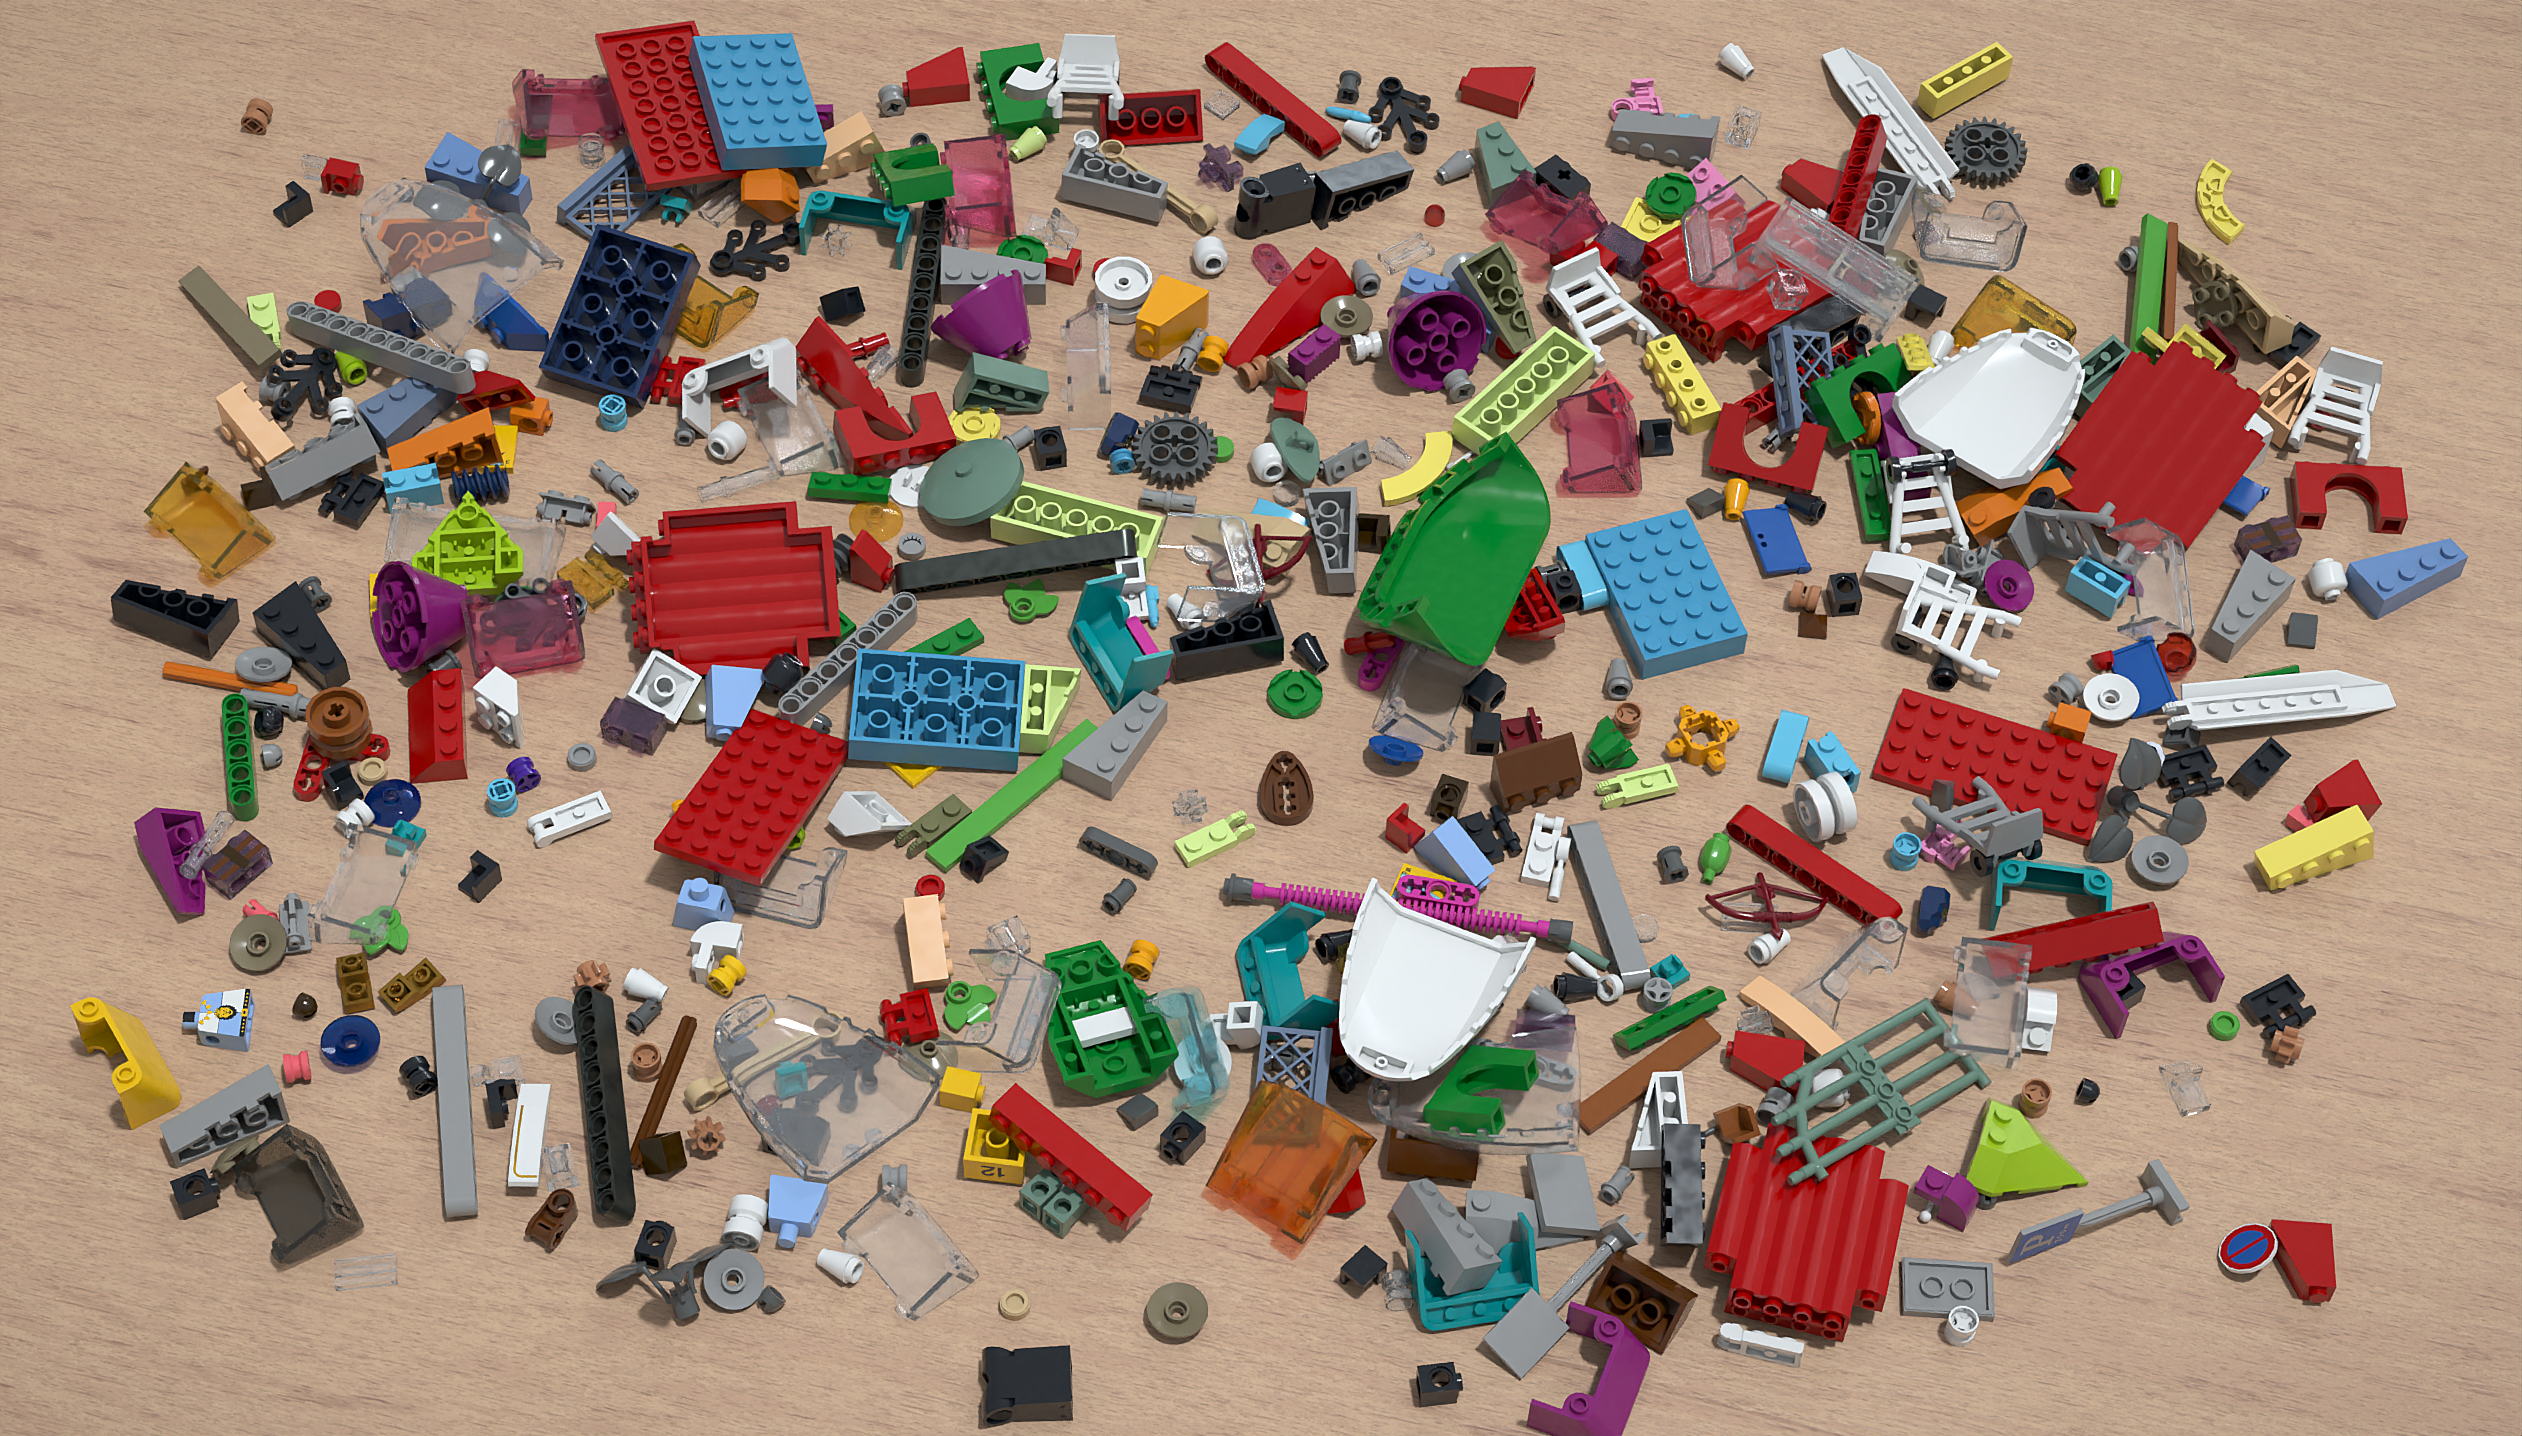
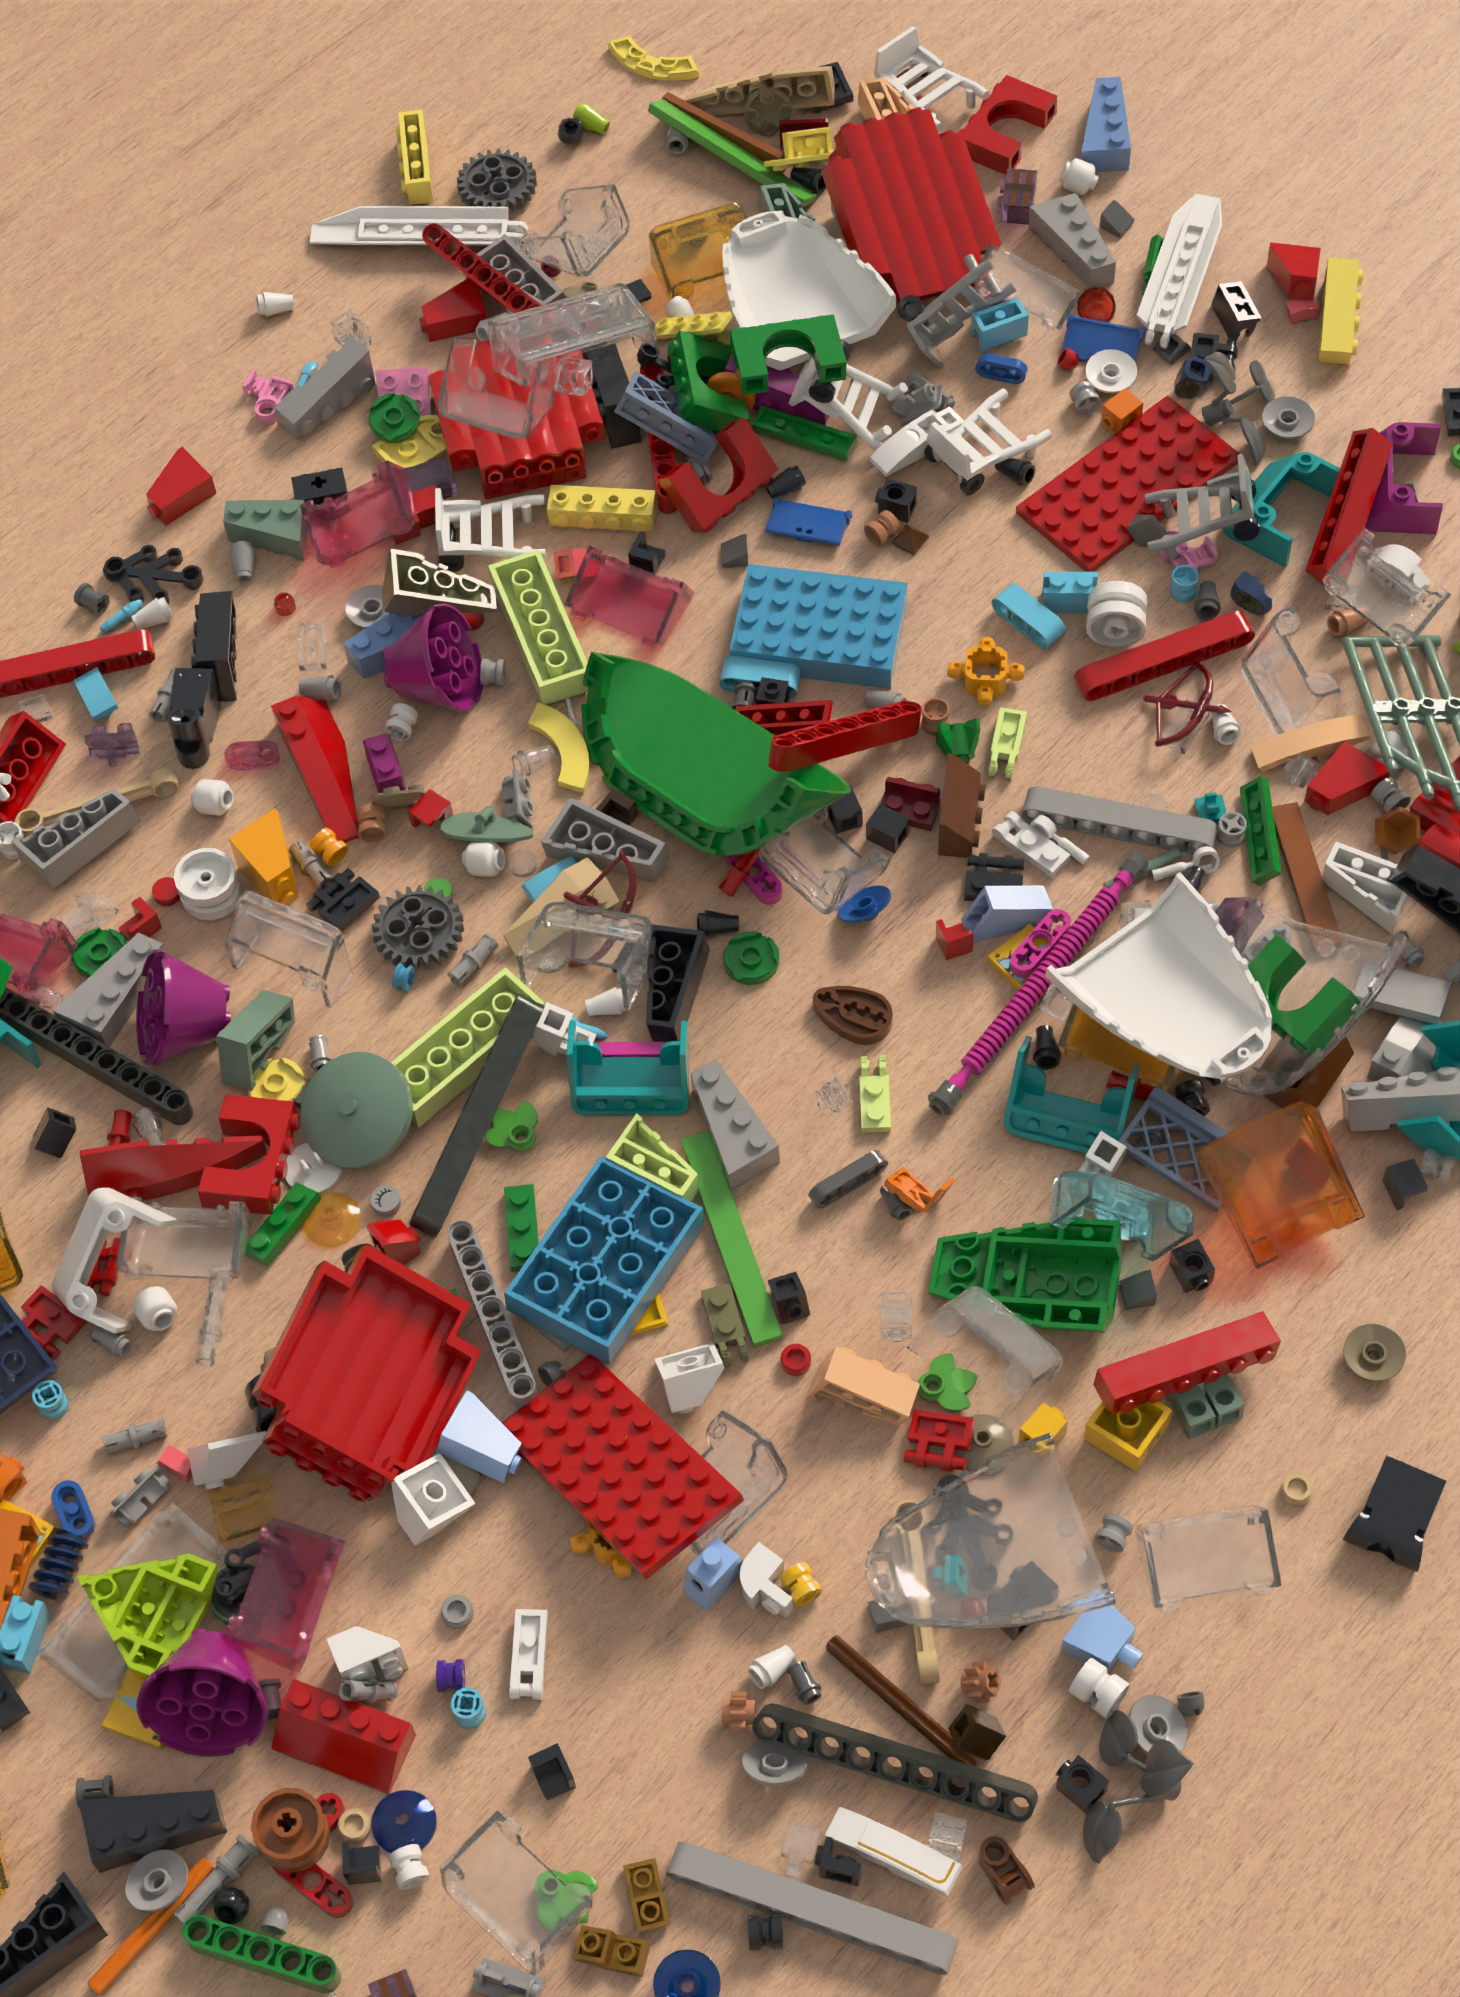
camera: 55 degrees left, 5 degrees up
(409, 831) = (457, 1825): teal tile -> none
(478, 722) = (368, 1690): none -> light grey pin
(528, 475) = (74, 1512): none -> blue plate
(633, 726) = (454, 1545): clear purple brick -> none
(646, 1062) = (863, 1695): nougat wheel -> none
(782, 673) = (482, 1376): black head -> none
(842, 1265) = (1185, 1622): white cone -> none
(1050, 448) = (354, 1039): black brick -> none
(1104, 1027) = (1041, 1273): white tile -> none
(1118, 433) = (370, 966): dark blue rock -> none
(1137, 896) = (912, 1190): none -> orange piece
(1140, 962) = (979, 1213): light orange wheel -> none
(1347, 315) = (354, 714): dark tan dish -> none
(1449, 789) = (941, 878): dark brown brick -> none
(1542, 650) = (844, 736): none -> red beam
(1672, 864) = (1103, 754): dark grey bush -> none
(1715, 856) = (1111, 720): bright green plant -> none
(1736, 495) = (744, 524): light orange cone -> none
(1892, 390) = (814, 335): none -> green arch
(1897, 879) = (1207, 602): none -> dark grey cone
(1992, 510) = (882, 353): orange wedge -> none
(2016, 581) = (959, 383): magenta dish -> none
(2050, 607) = (1001, 368): none -> blue plate

